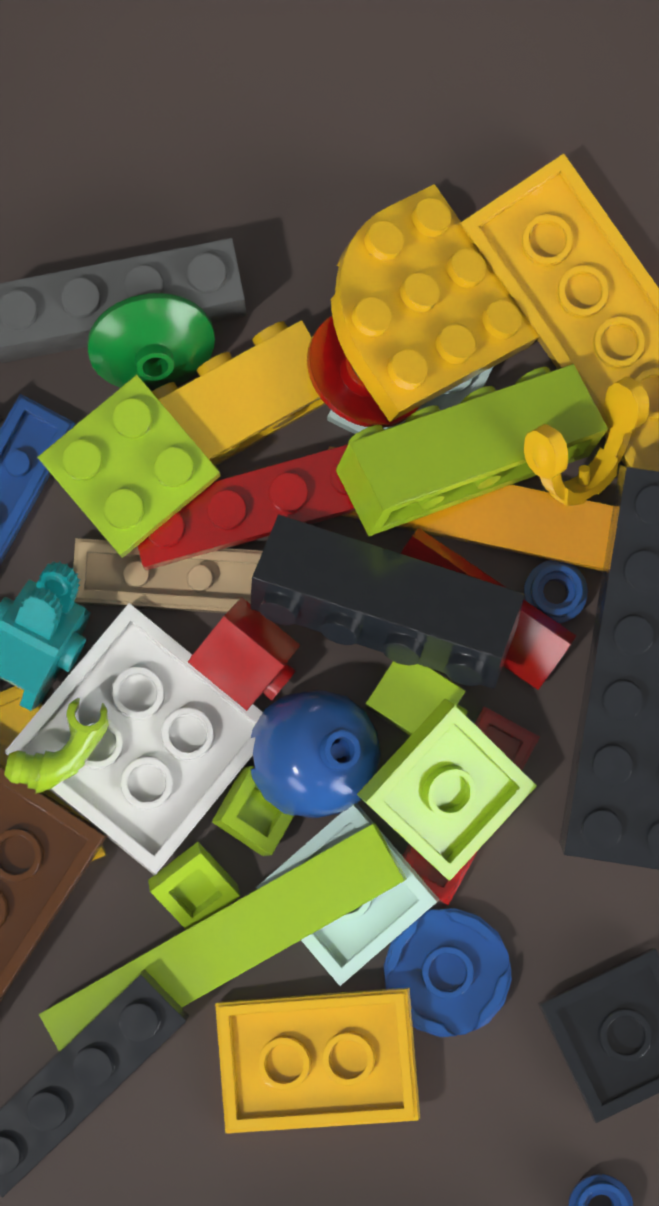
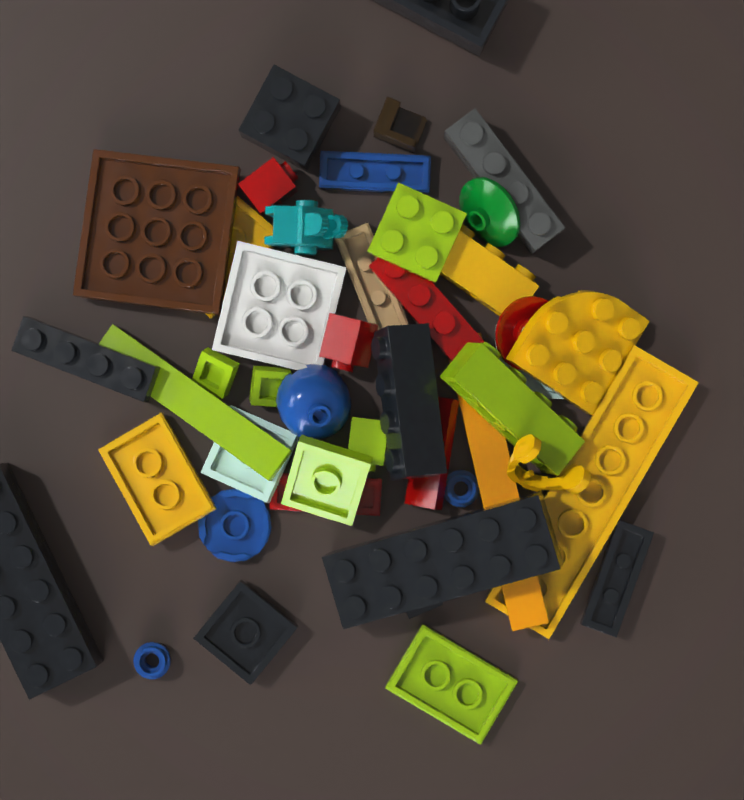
camera: 70 degrees right, 5 degrees up
(50, 769) = (239, 269): lime piece -> none

